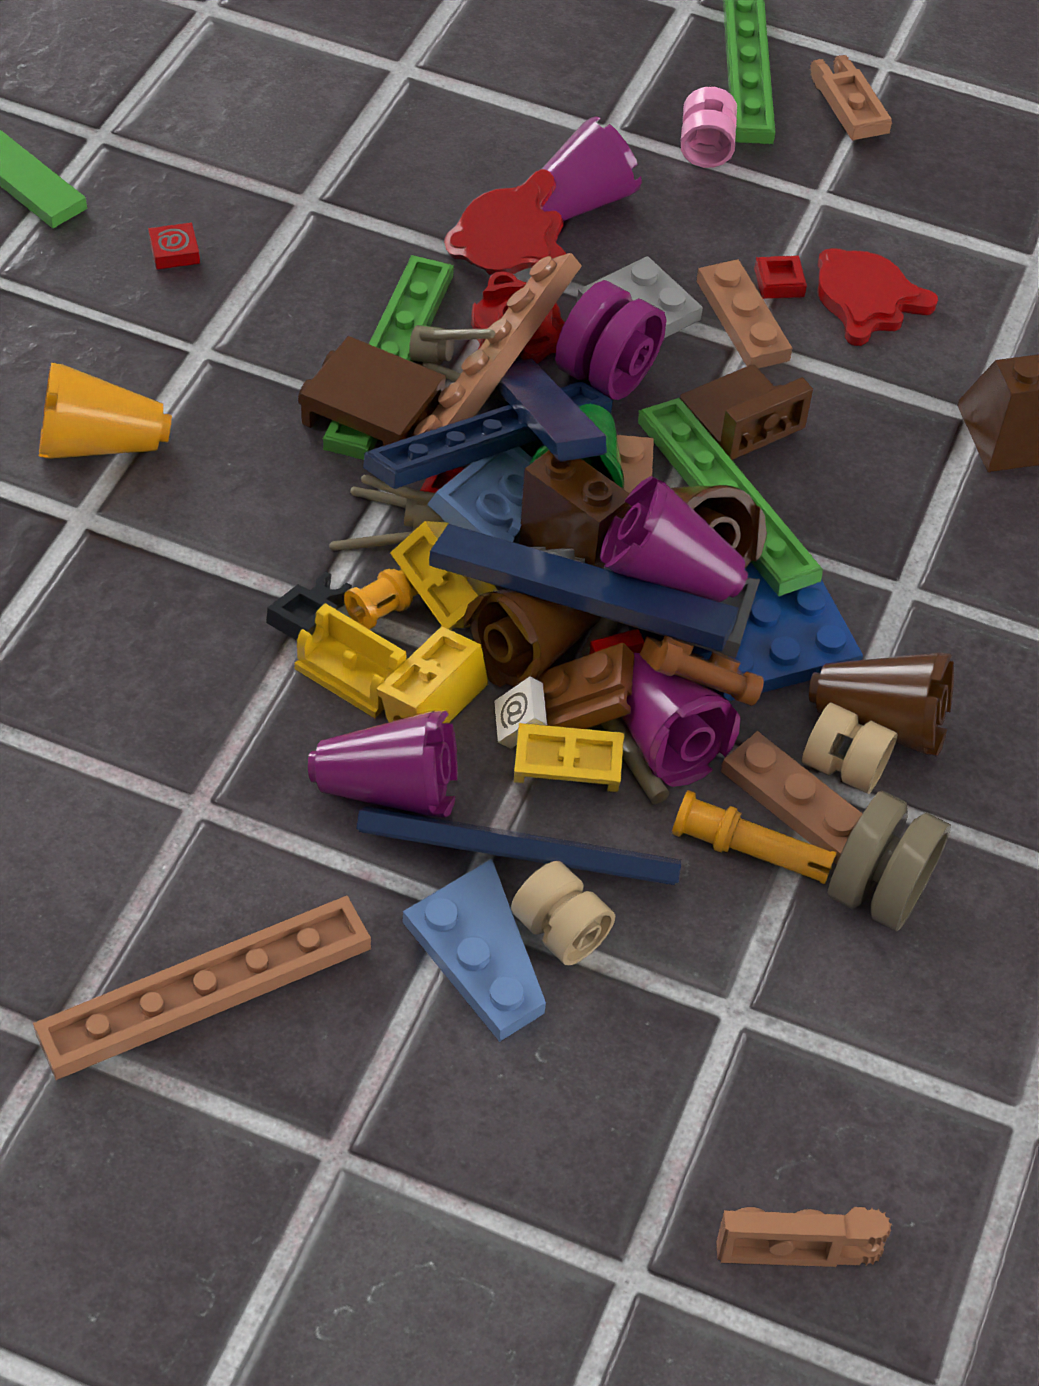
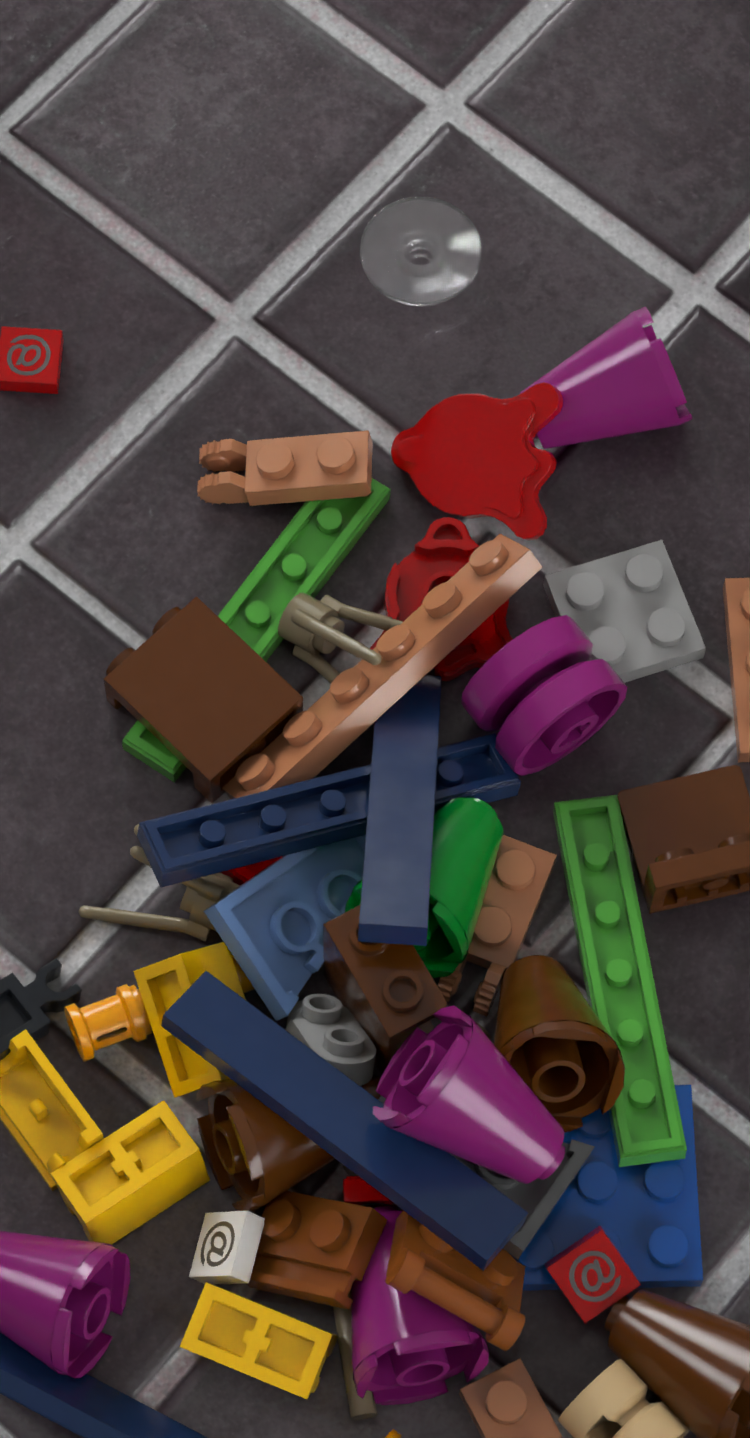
camera: 20 degrees right, 15 degrees up
(378, 265) = (287, 469): none -> nougat hinge
(421, 135) = (420, 229): none -> clear dish
(788, 661) = (592, 1274): none -> red tile

